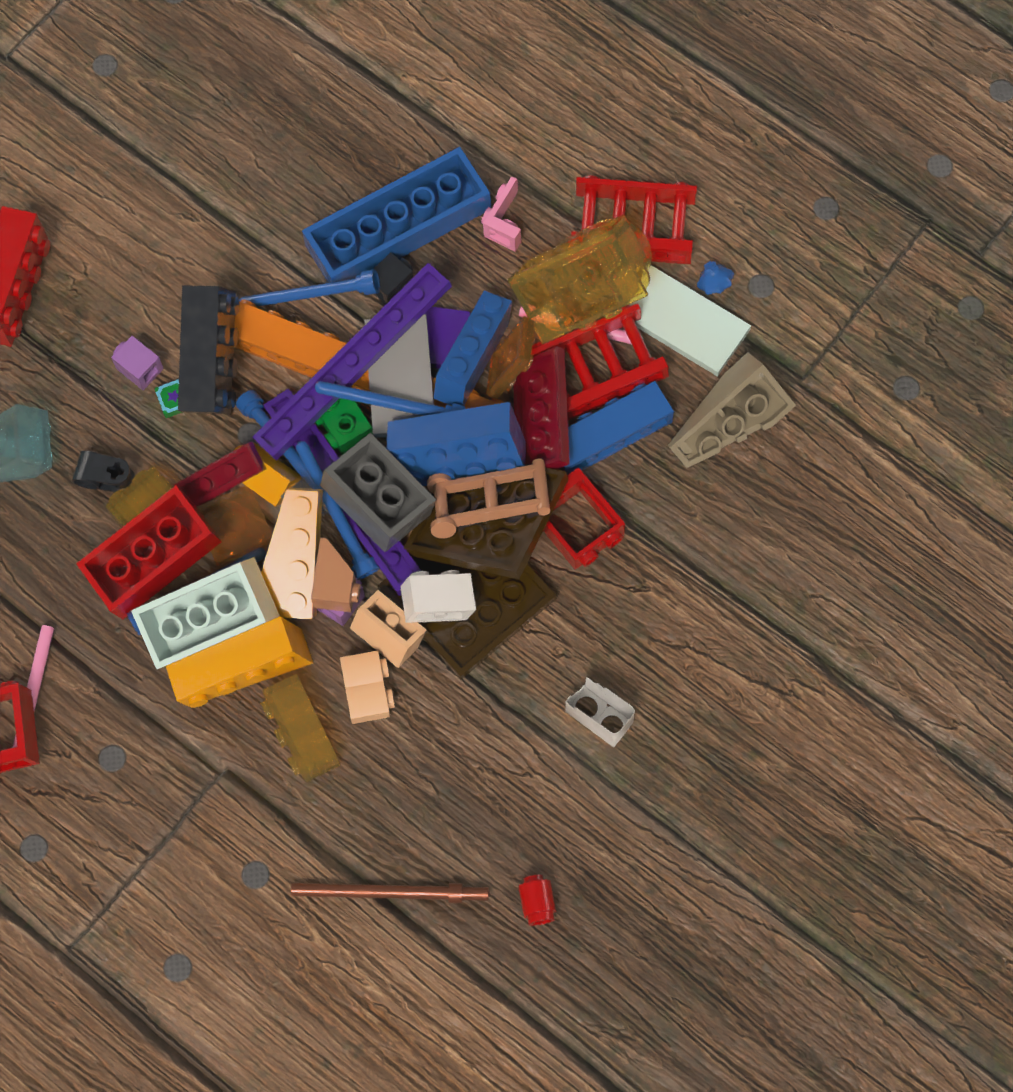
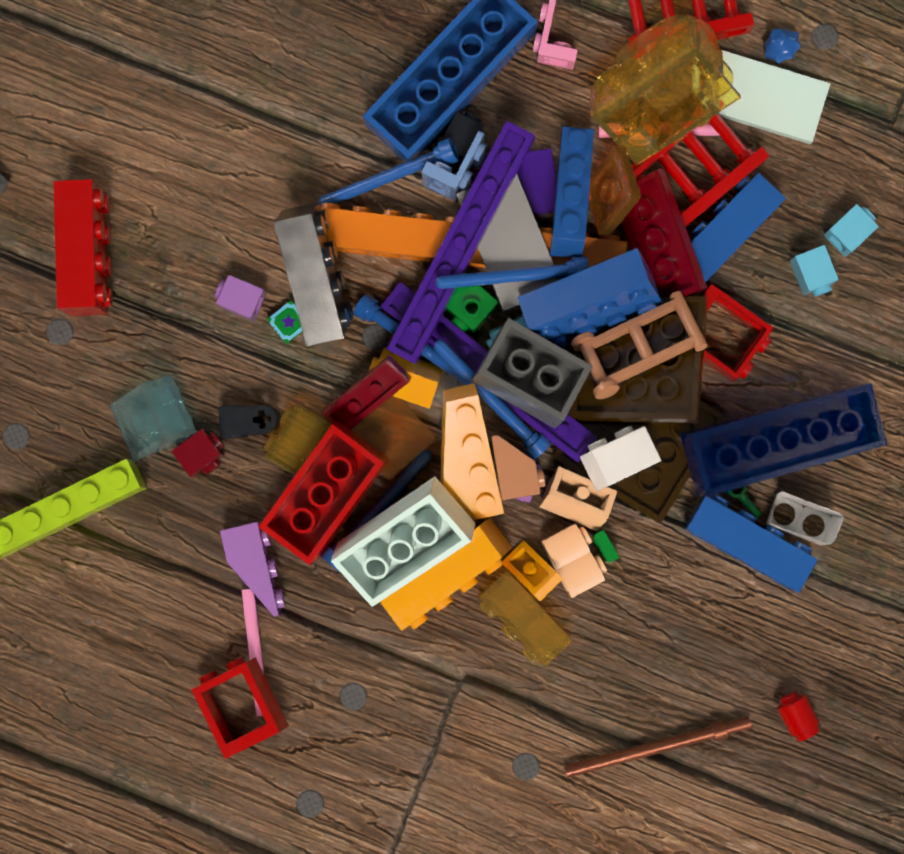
camera: 15 degrees left, 15 degrees up
(48, 488) = (200, 453): none -> dark red brick
(59, 592) = (249, 558): none -> medium lavender slope
(323, 686) = (532, 570): none -> light orange slope
(357, 306) = (440, 176): none -> medium blue bracket
(400, 683) = (605, 546): none -> green tile
(542, 721) = (751, 544): none -> blue brick
(550, 677) = (744, 498): none -> dark green hand
(602, 626) = (783, 439): none -> clear blue brick
(683, 487) = (814, 271): none -> medium azure brick
(730, 460) = (851, 230): none -> medium azure brick
(738, 405) = (842, 169): dark tan wedge -> none

